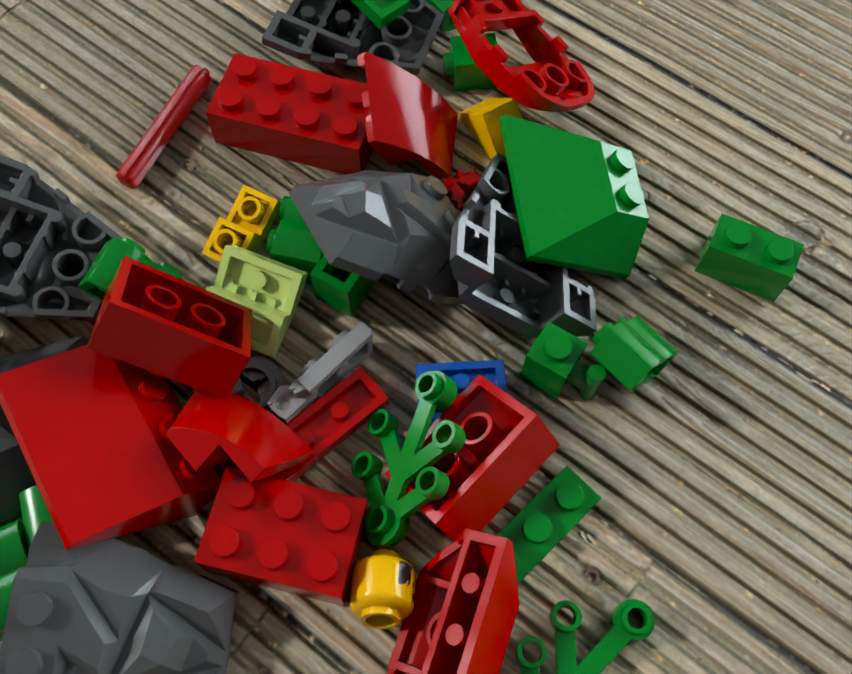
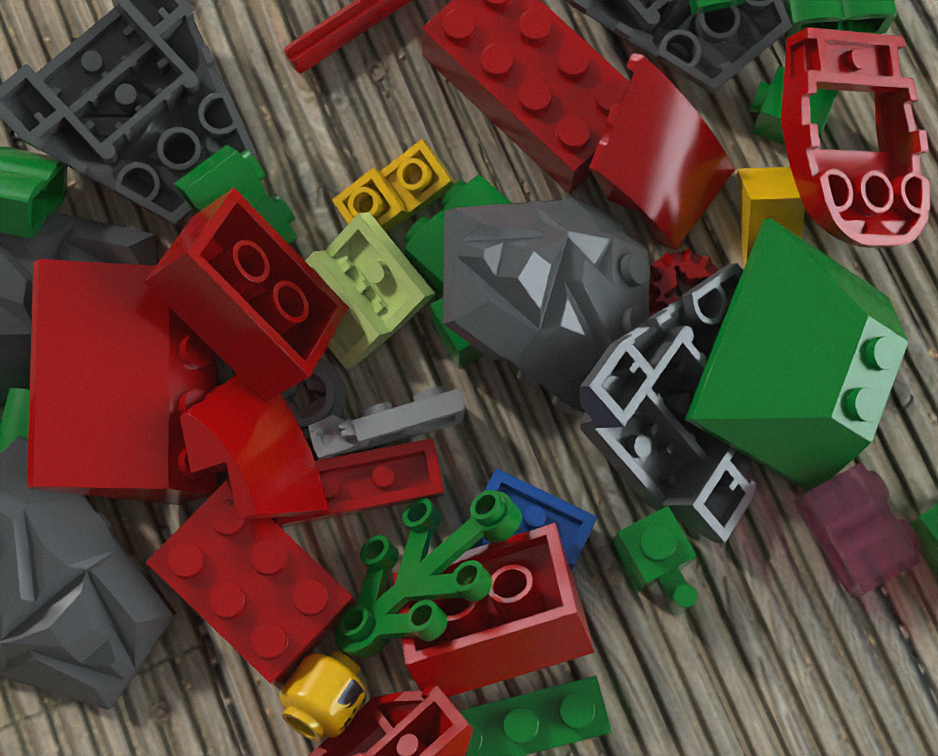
camera: 30 degrees right, 10 degrees up
(632, 351) = (745, 591): green brick -> none
(673, 281) = (859, 530): none -> clear pink brick

